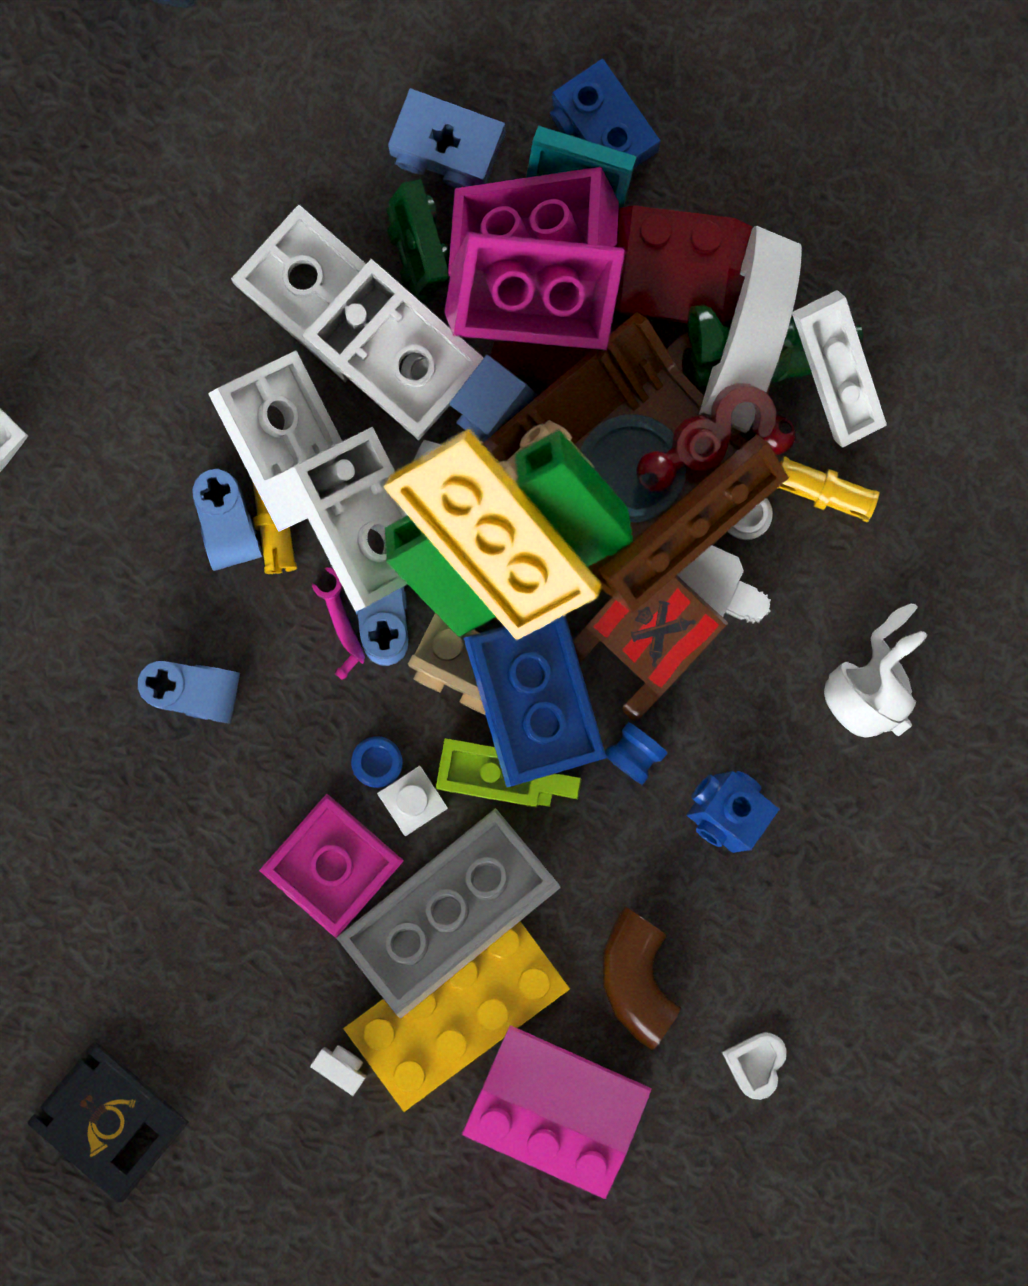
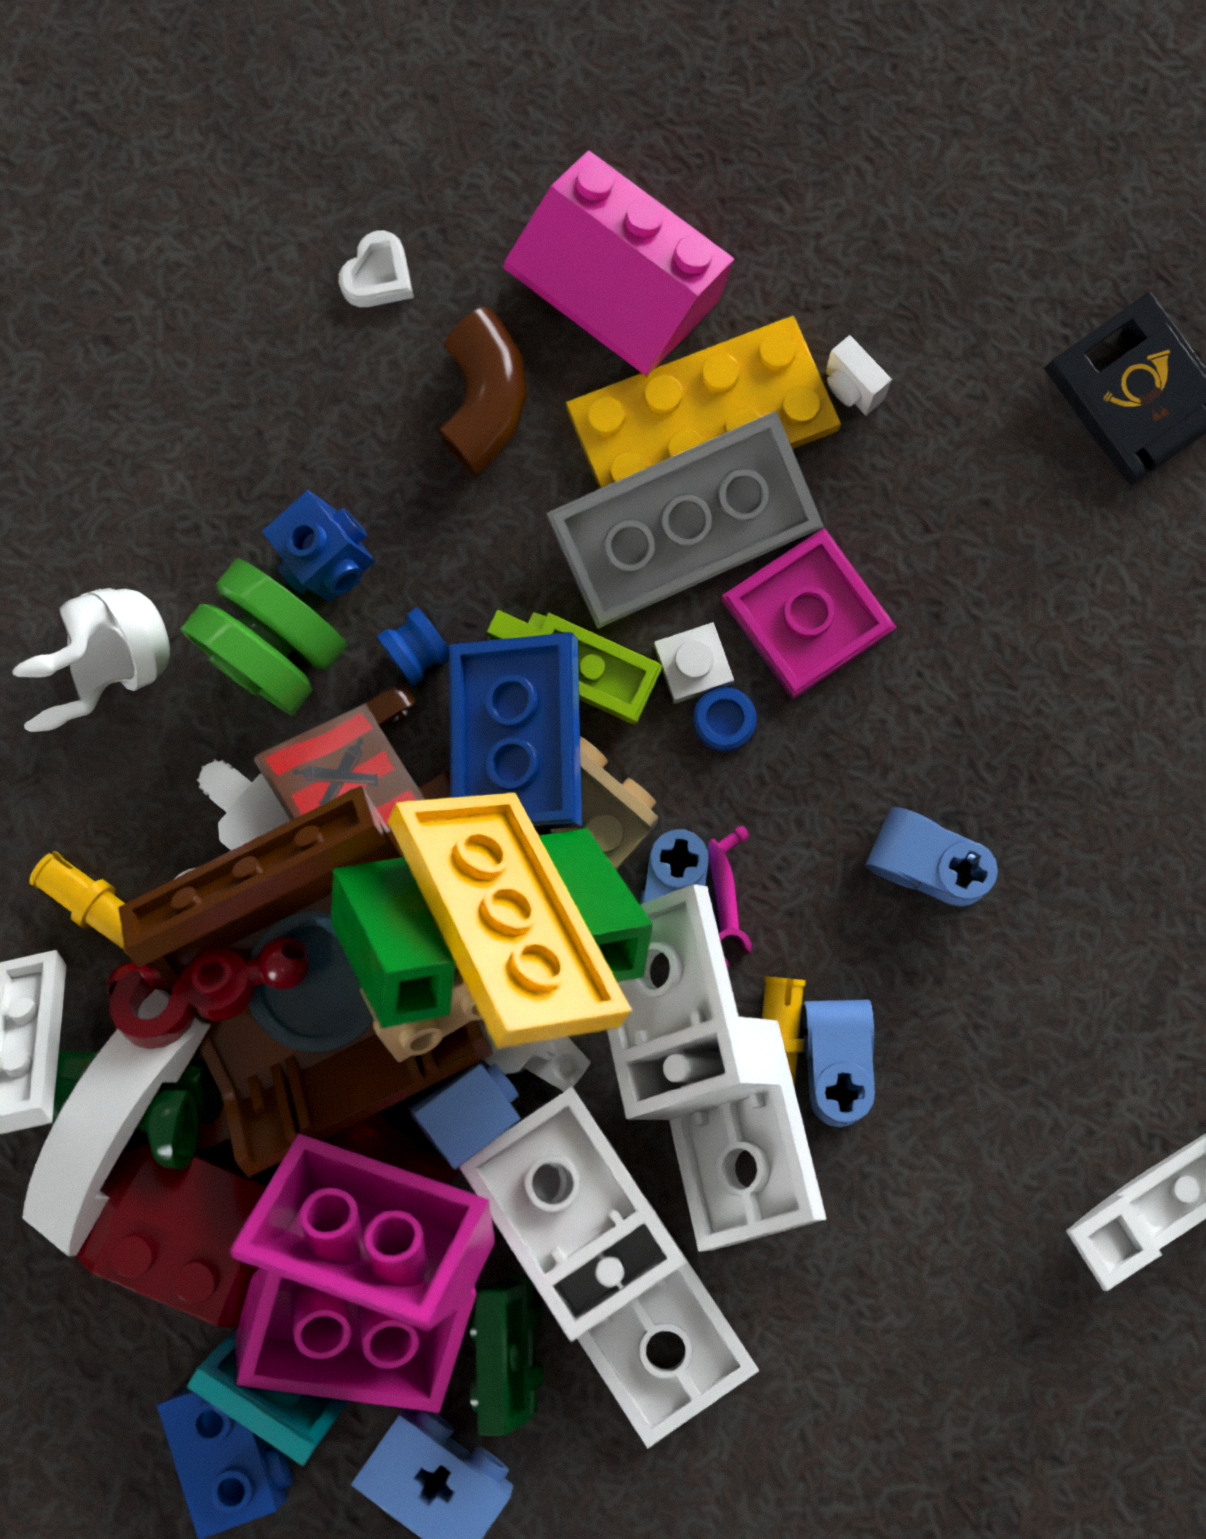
camera: 165 degrees left, 5 degrees down
(753, 716) = (269, 630): none -> bright green wheel

